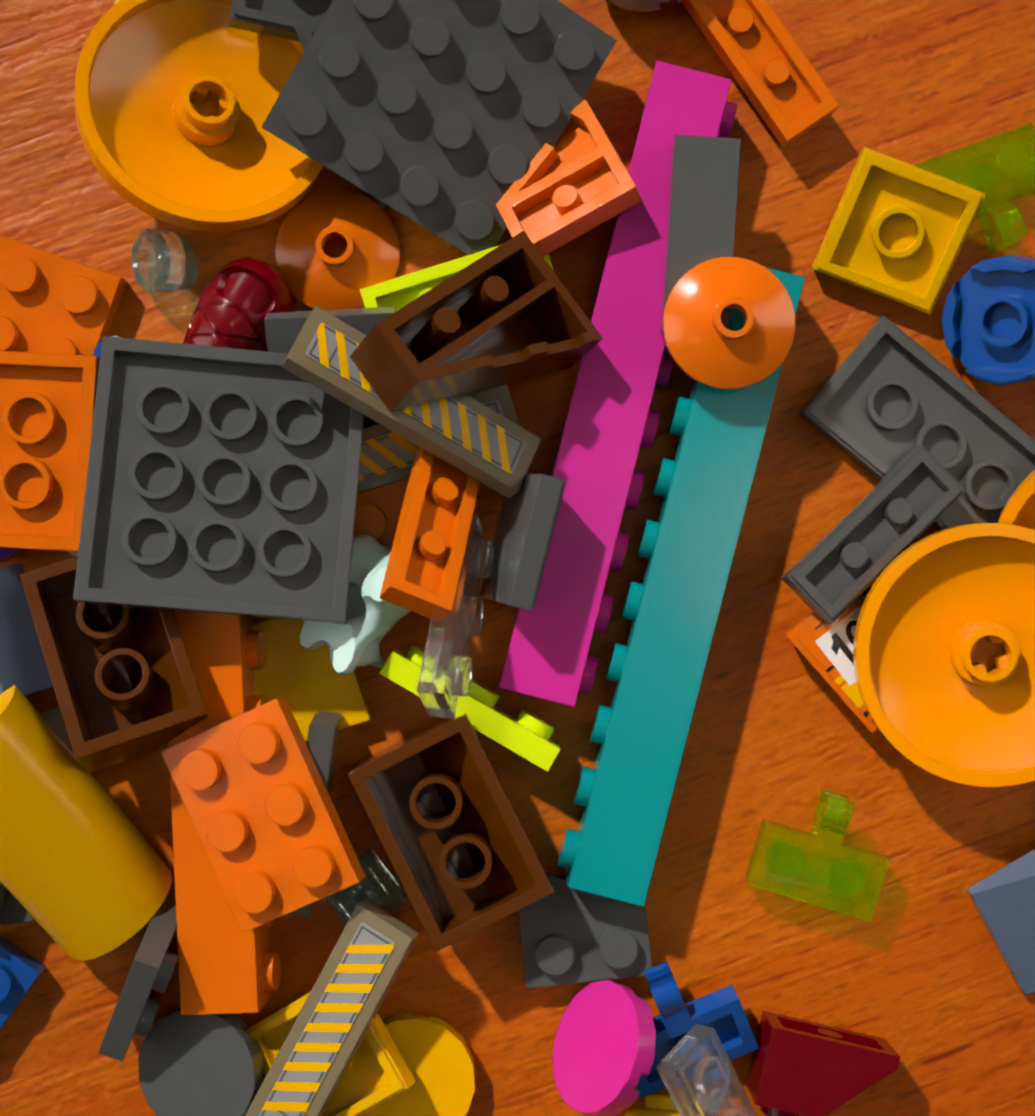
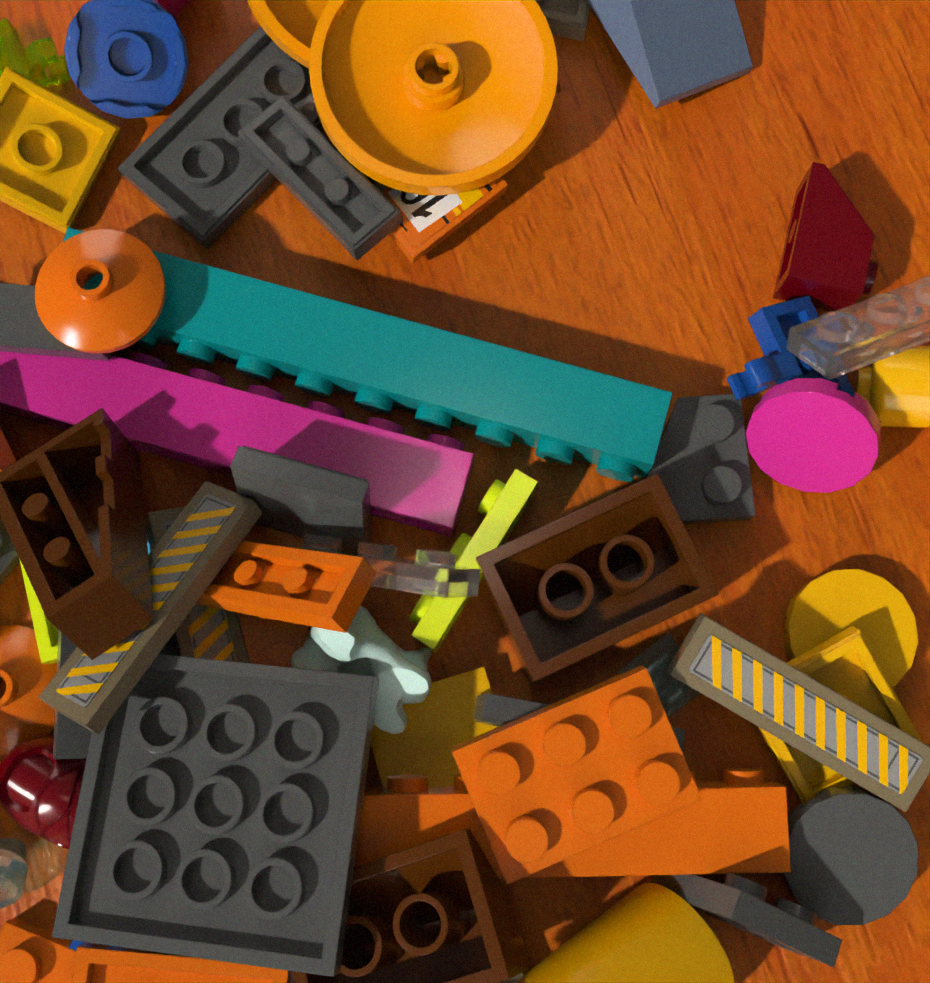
camera: 85 degrees left, 10 degrees down
(818, 864) = (631, 239): clear neon green plate -> none

